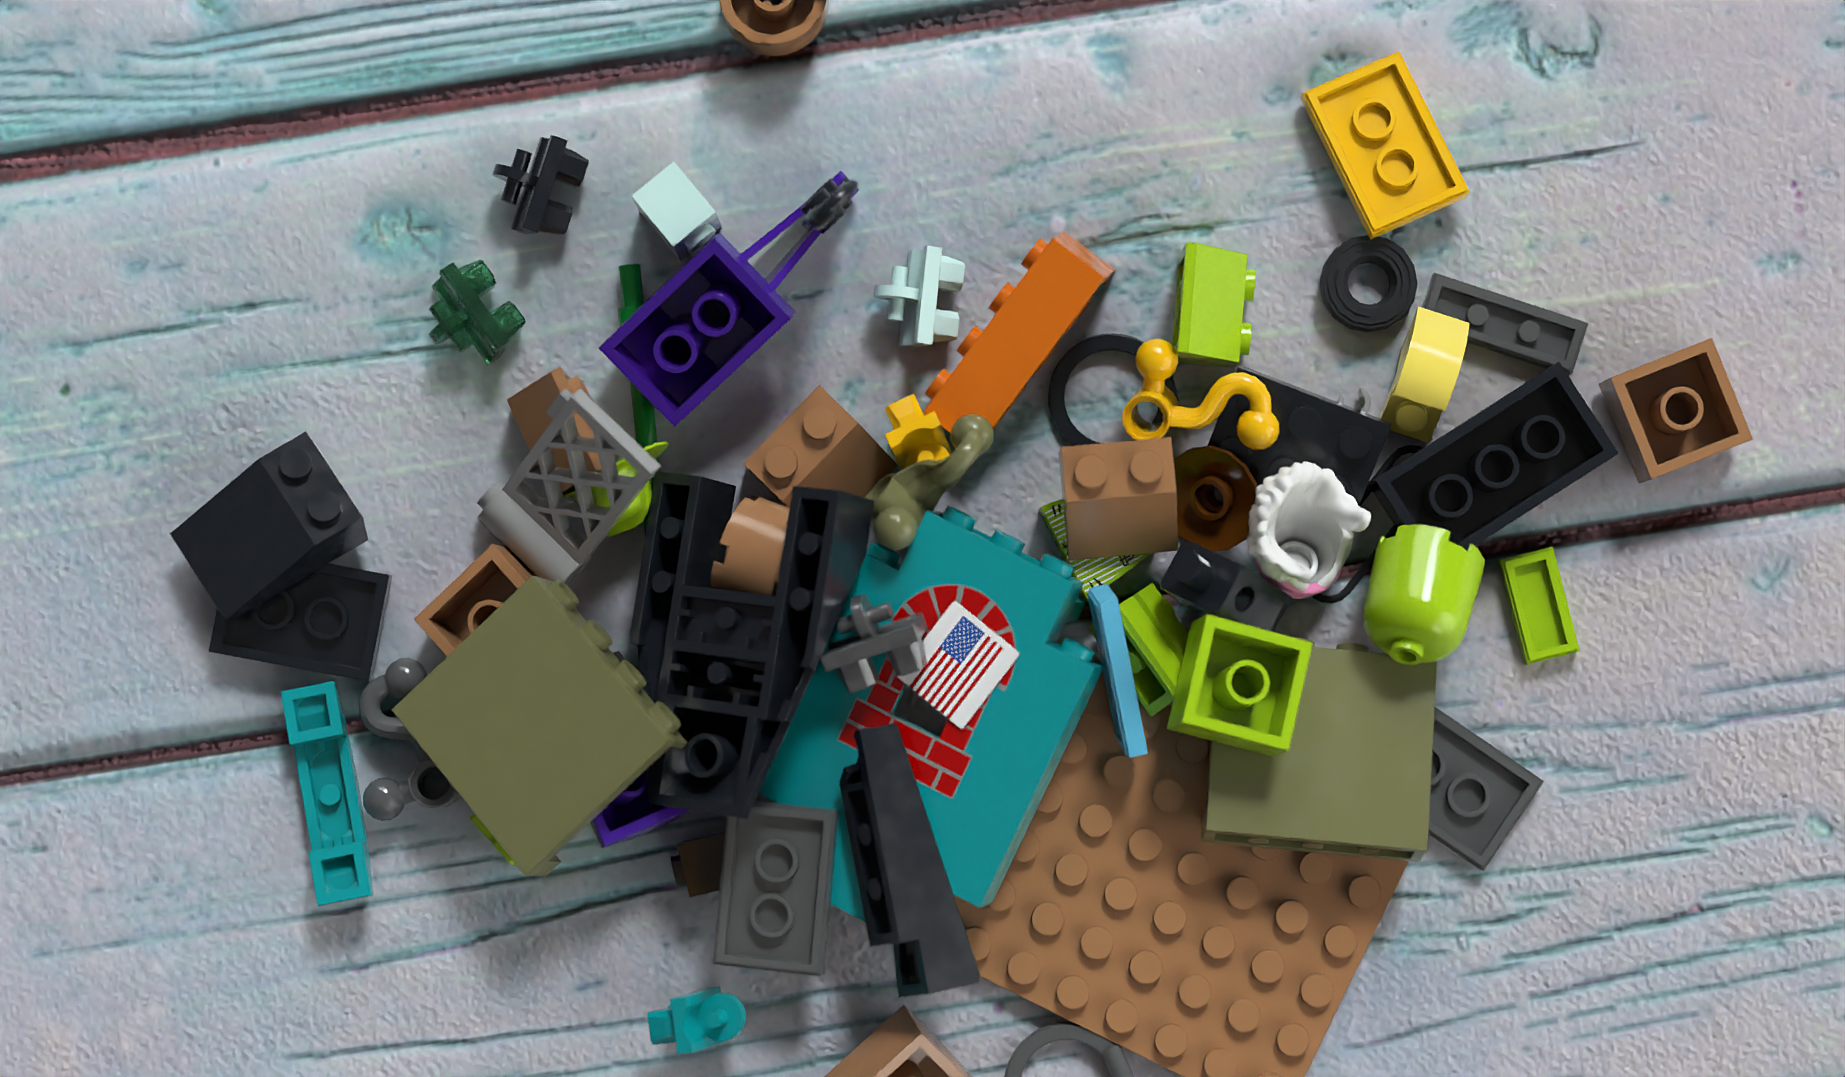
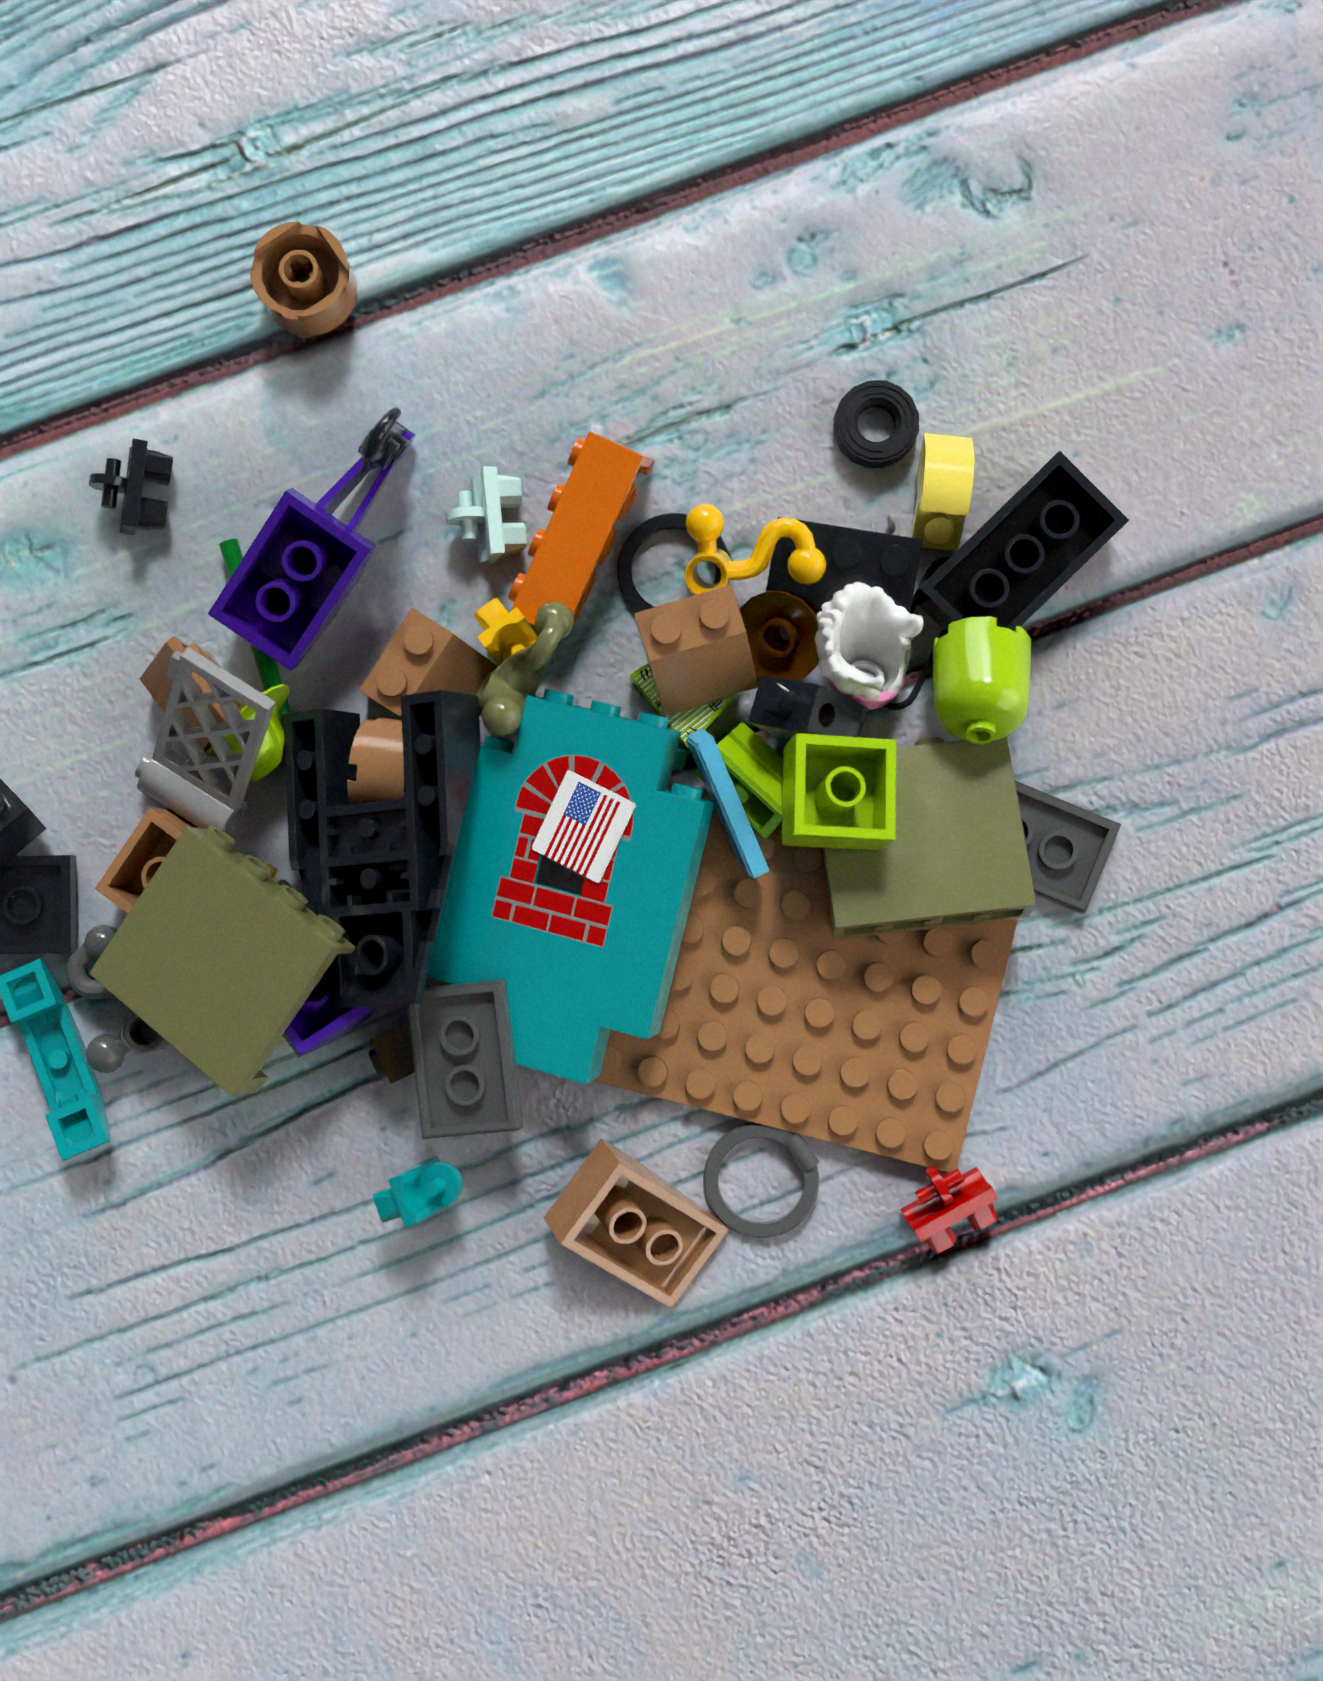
camera: 10 degrees left, 0 degrees up
(466, 318) = (85, 595): clear green hips -> none
(677, 211) = (251, 477): light aqua brick -> none
(853, 653) = (487, 837): flat silver hips -> none
(901, 869) = (571, 1019): black wedge -> none
(1210, 306) = (742, 468): lime slope -> none
(1384, 145) = (865, 300): yellow tile -> none
(1508, 323) = (1004, 434): dark grey tile -> none
(1538, 605) = (1083, 673): lime tile -> none
(1675, 410) = (1168, 475): medium nougat brick -> none

